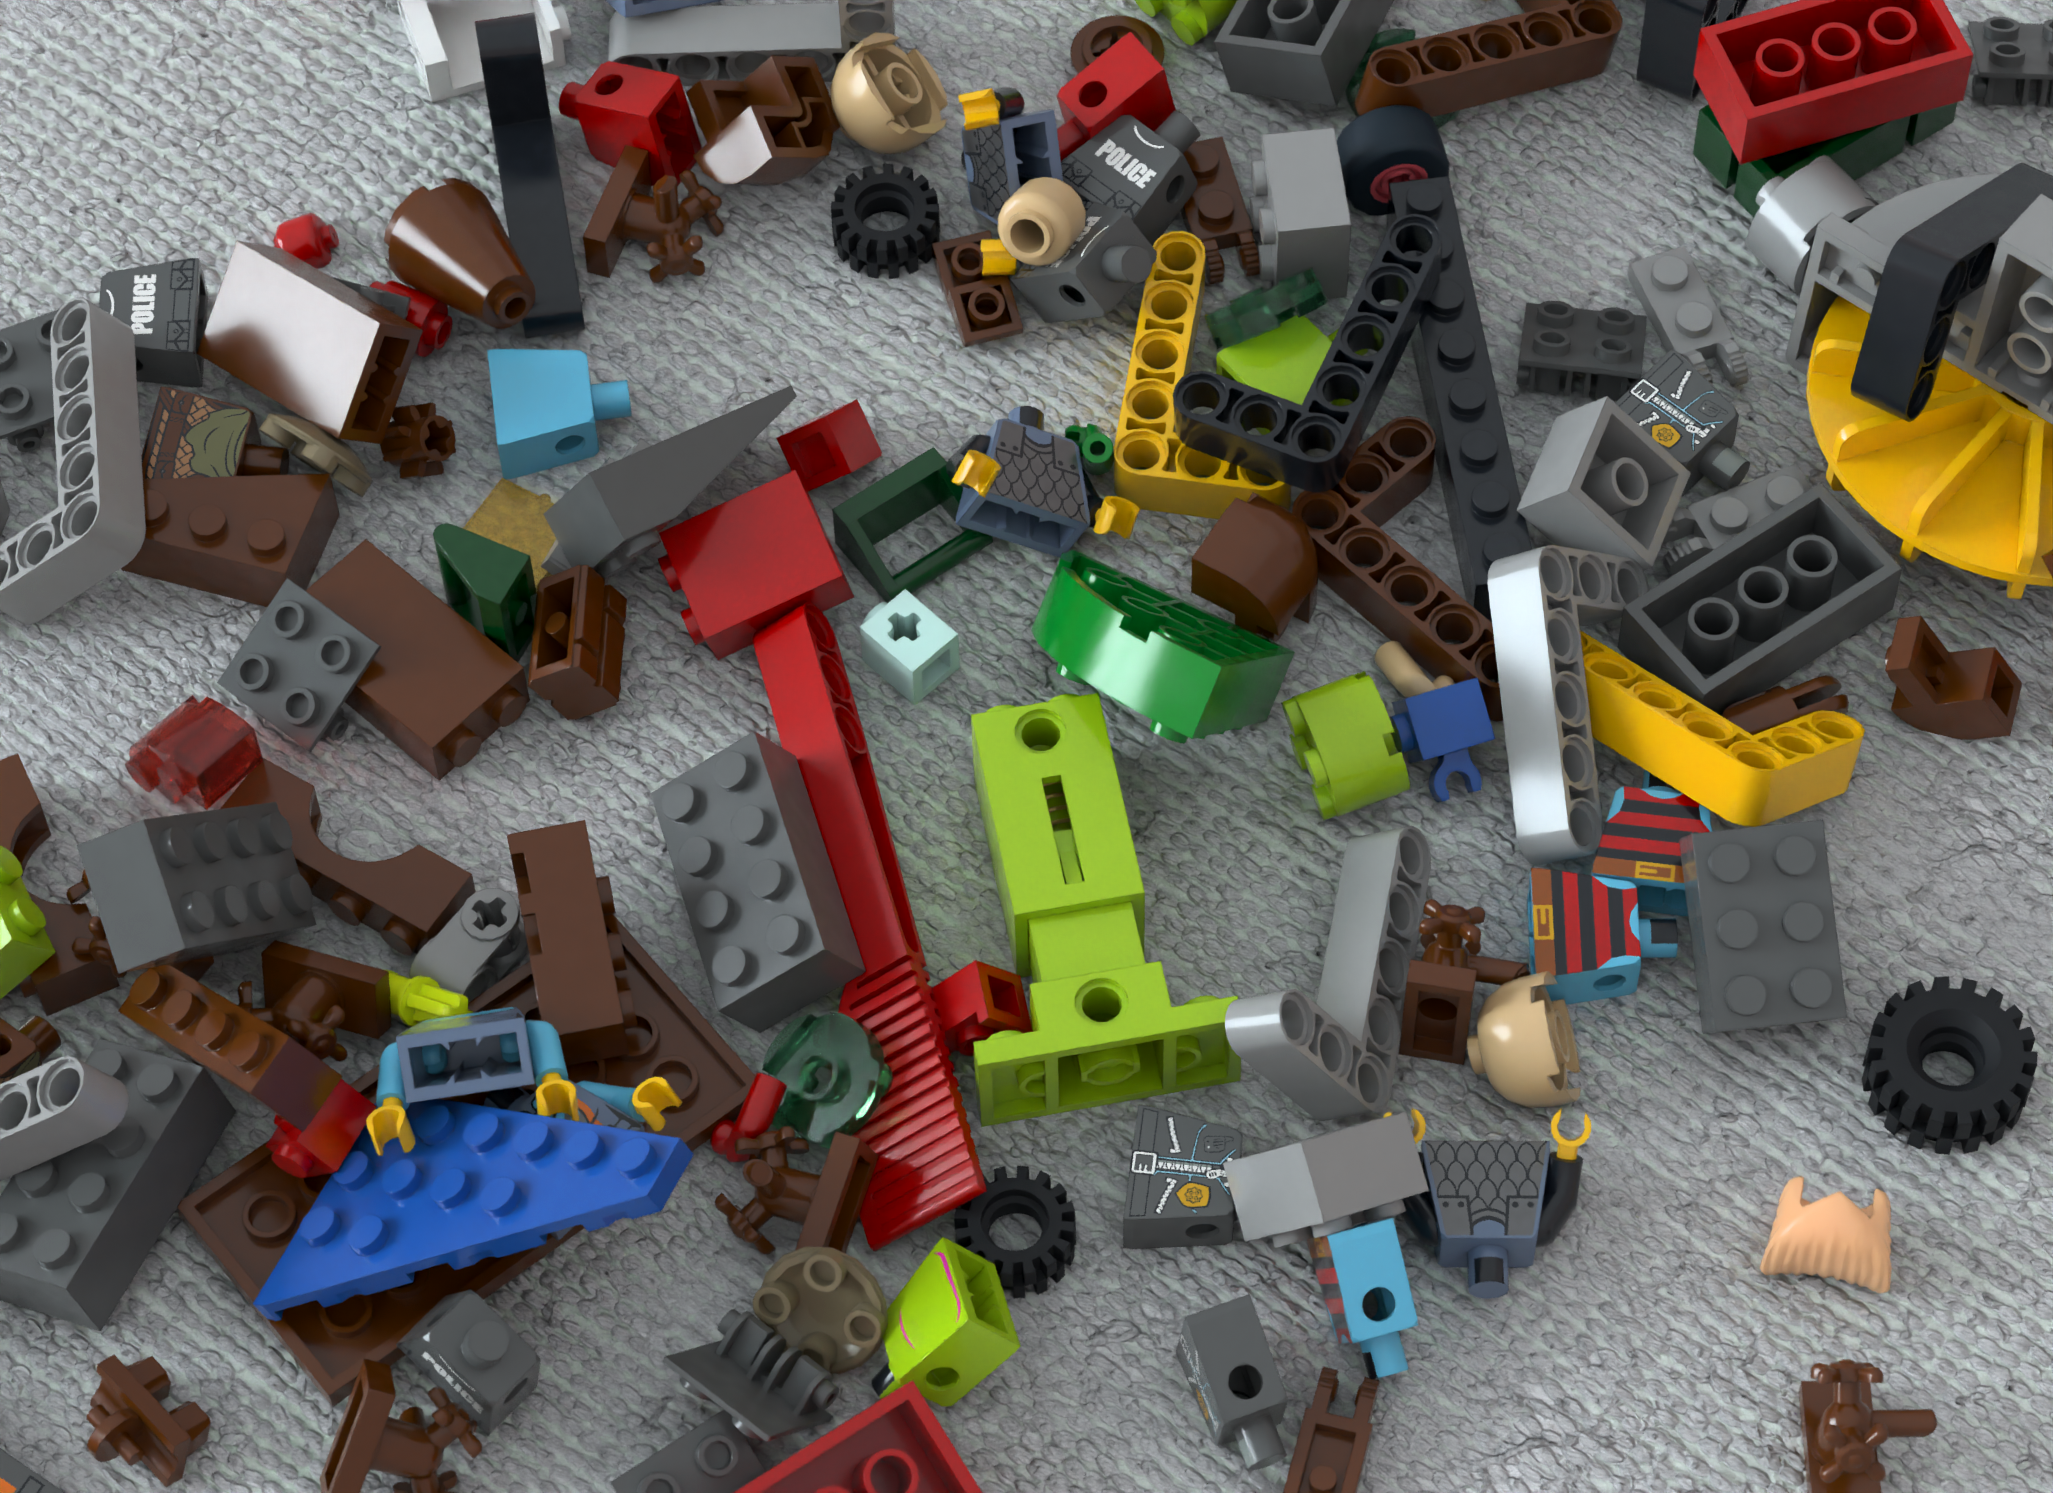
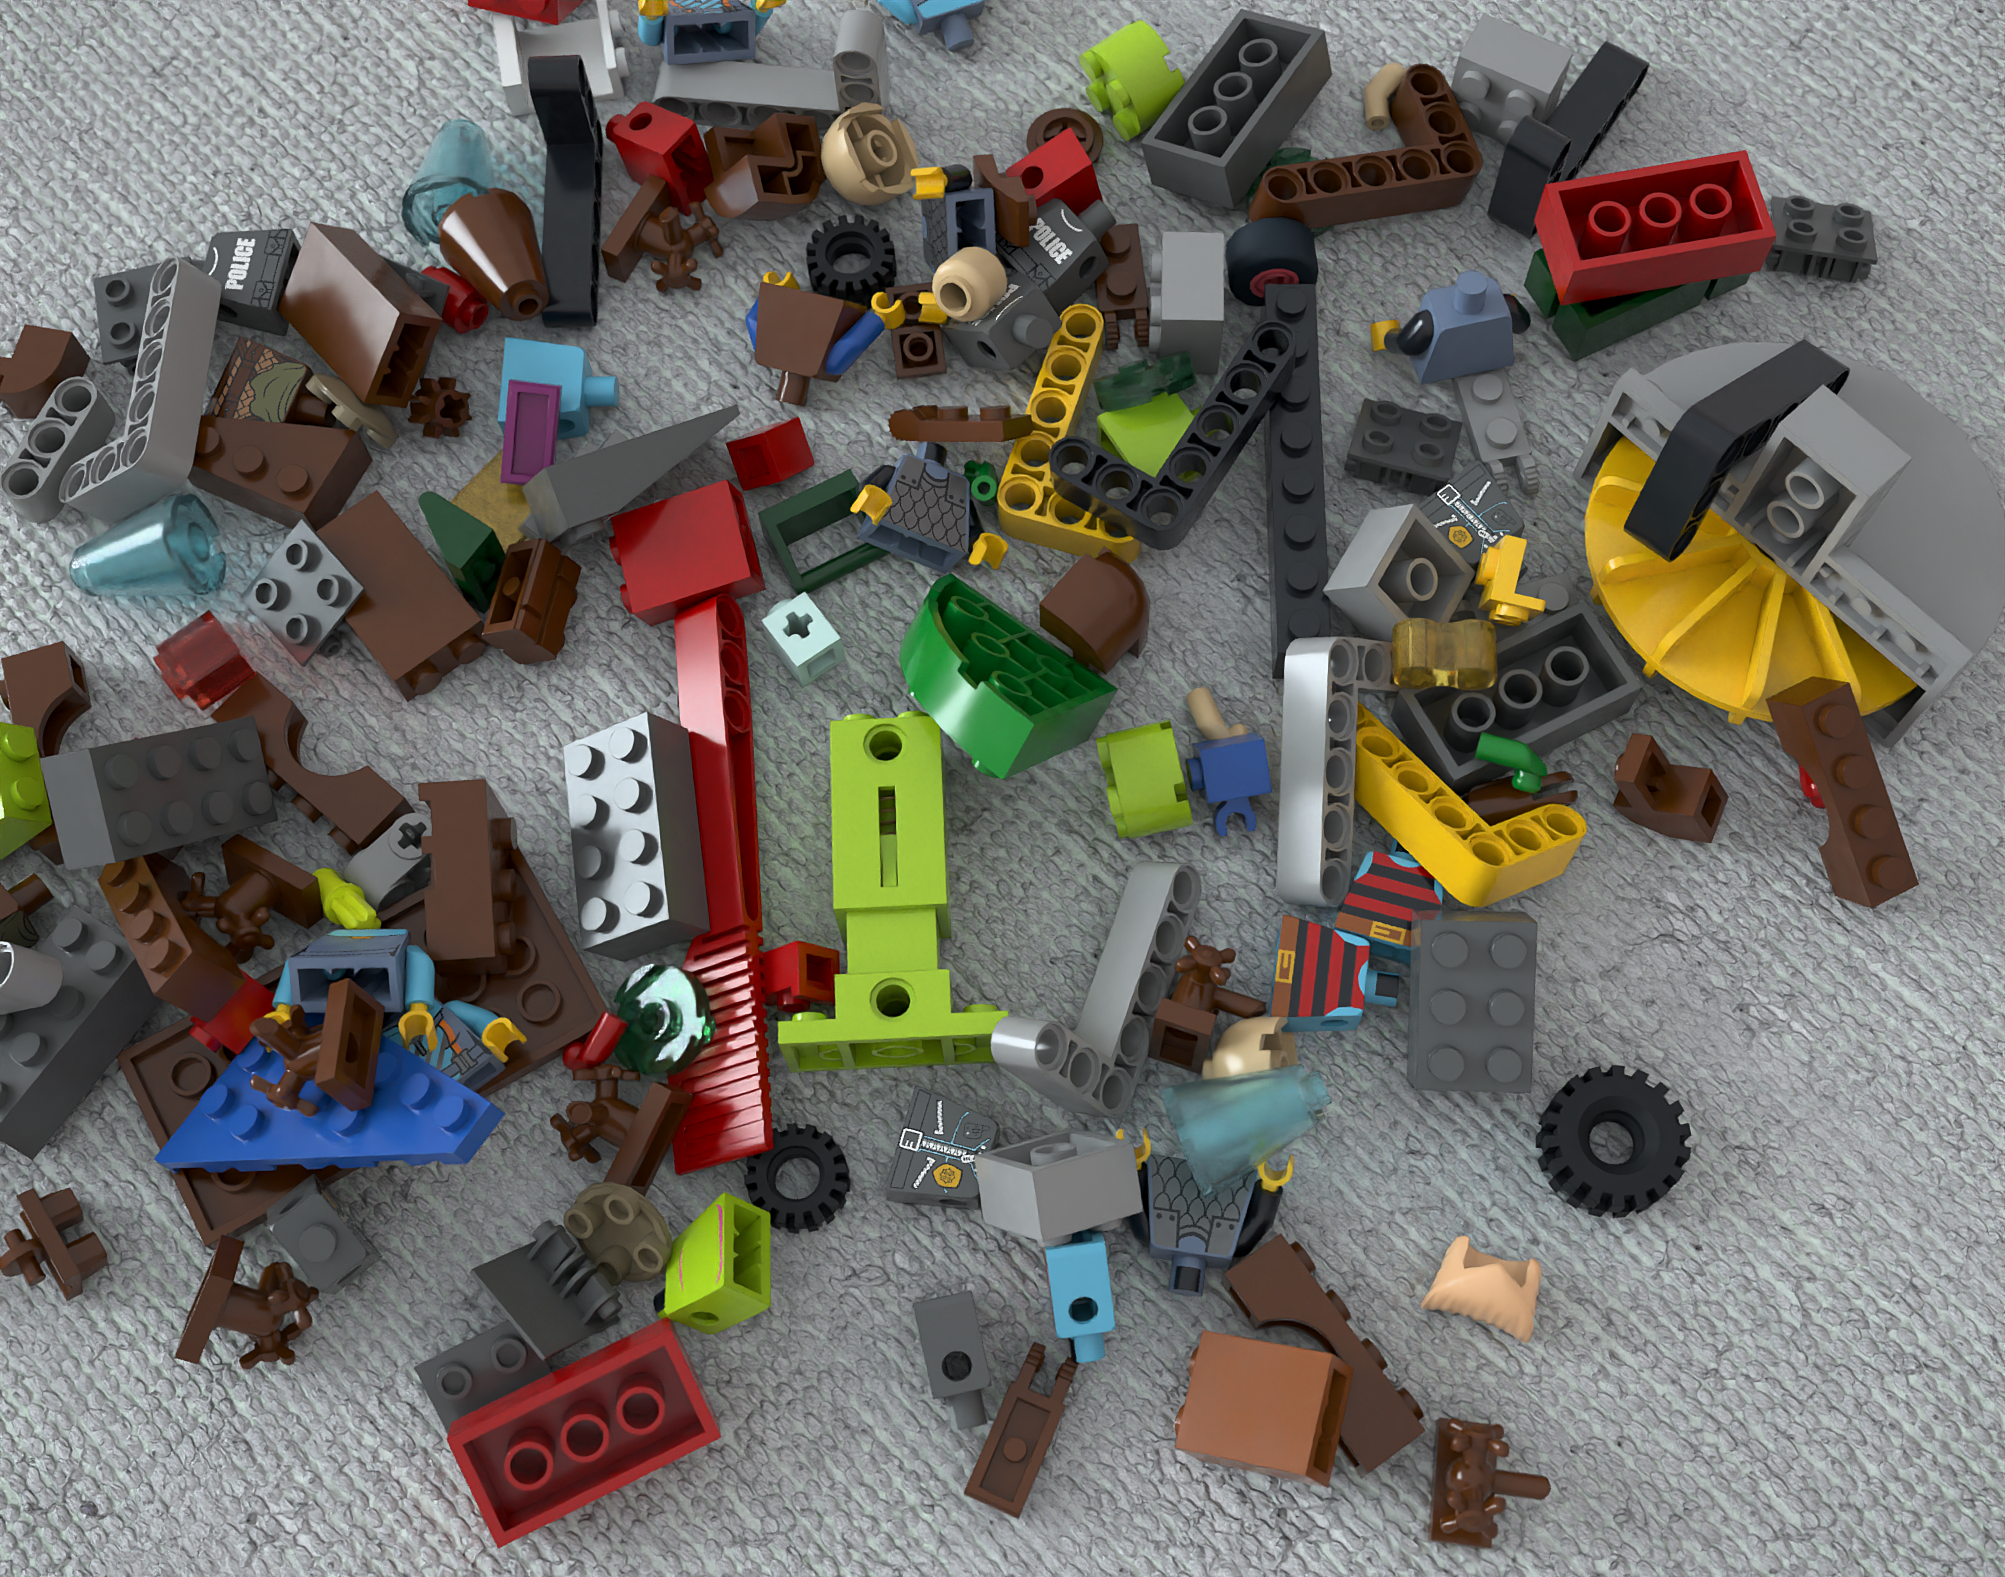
camera: 10 degrees right, 10 degrees up
(99, 647) = (153, 553): none -> clear light blue cone
(307, 239) = (385, 225): red piece -> none
(377, 175) = (451, 168): none -> clear light blue cone
(481, 1123) = (334, 1054): none -> reddish brown piece
(539, 450) = (530, 430): none -> magenta tile
(857, 303) = (812, 333): none -> reddish brown torso
(1049, 382) = (955, 424): none -> reddish brown hinge
(1079, 126) = (1012, 206): none -> reddish brown slope
(1395, 575) = (1215, 629): reddish brown beam -> none
(1525, 1073) = (1242, 1120): none -> clear light blue cone
(1598, 1274) = (1278, 1291): none -> reddish brown arch
(1600, 1387) = (1264, 1407): none -> dark orange brick
(1623, 208) = (1457, 330): none -> sand blue torso
(1669, 556) = (1444, 654): none -> clear yellow axle
(1715, 464) = (1499, 575): none -> yellow bracket
(1773, 658) = (1513, 755): none -> green arm
(1794, 208) = (1605, 353): light grey brick -> none

